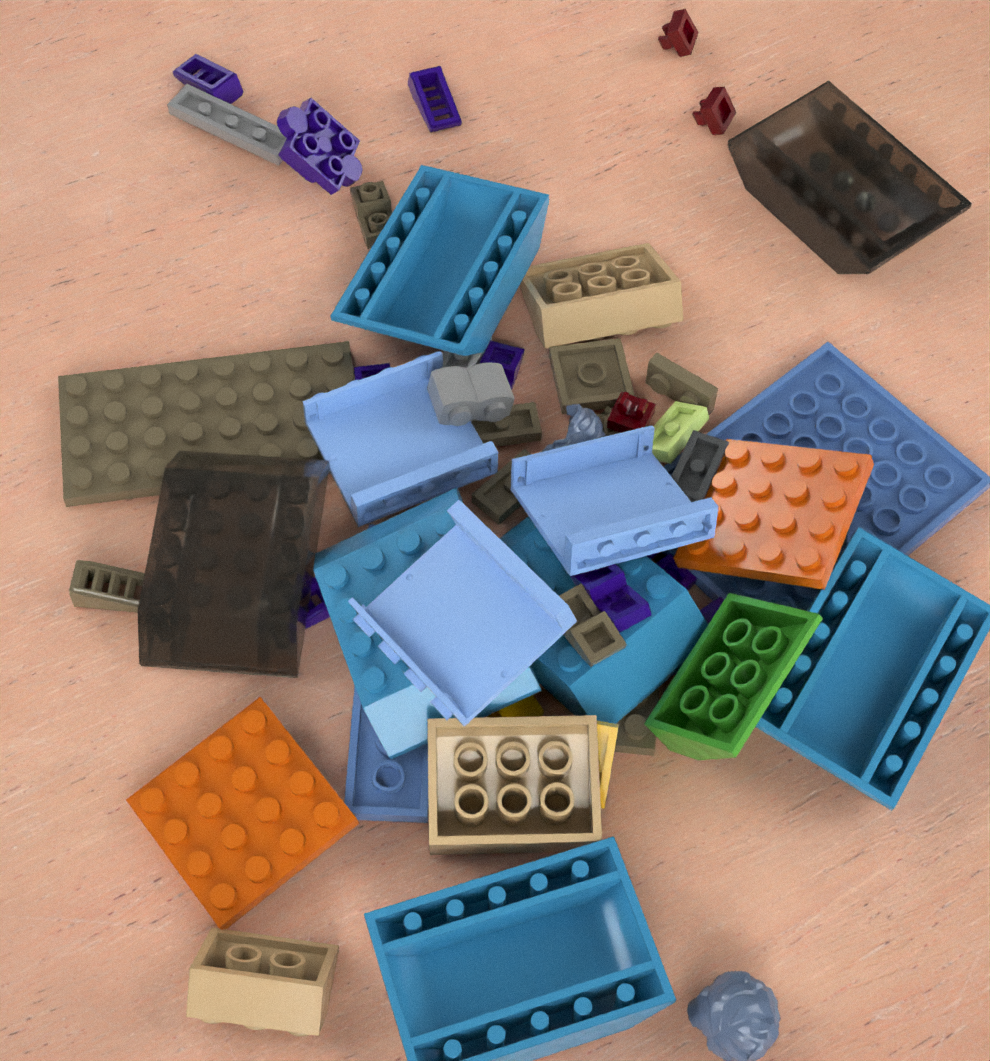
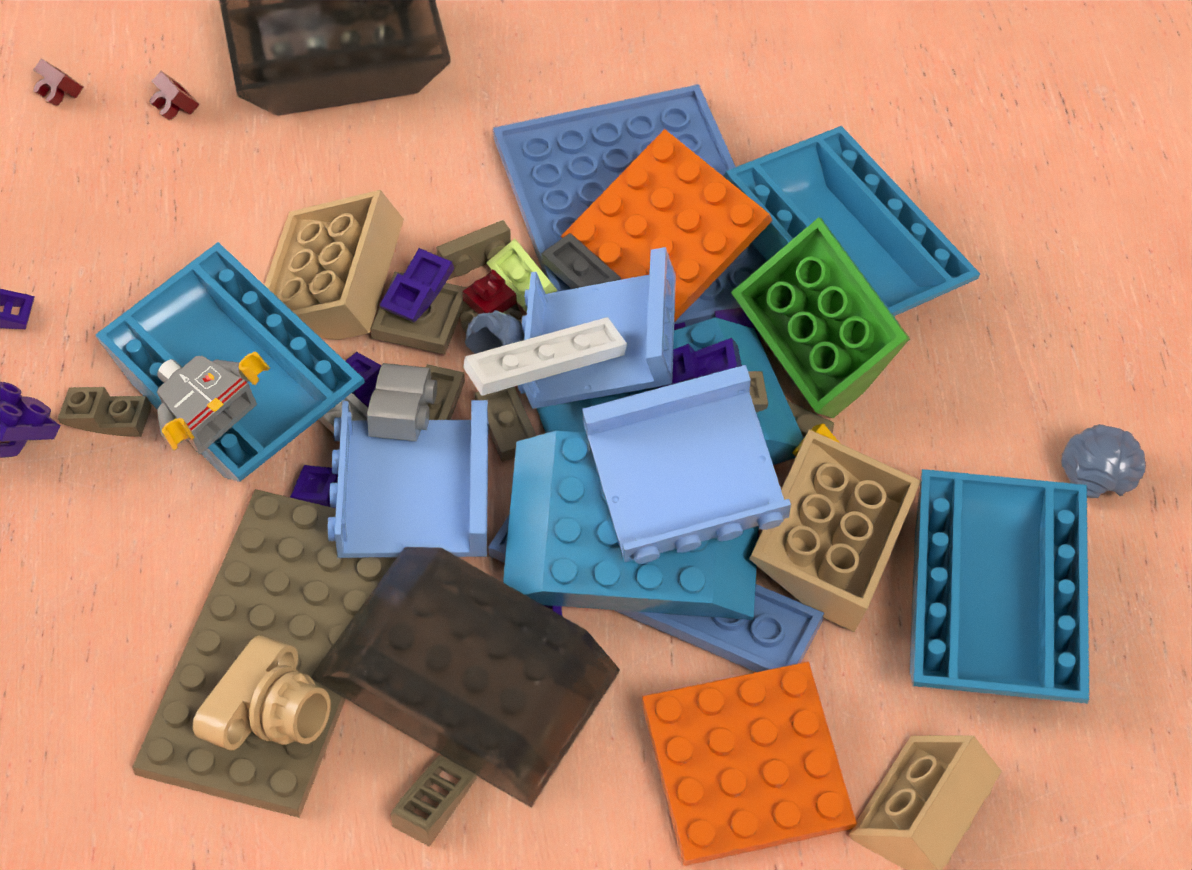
camera: 65 degrees left, 5 degrees down
(132, 424) = (263, 696): none -> tan beam
(375, 253) = (205, 398): none -> light grey torso
(542, 464) = (544, 356): none -> white plate
(600, 359) = (418, 287): none -> dark purple slope

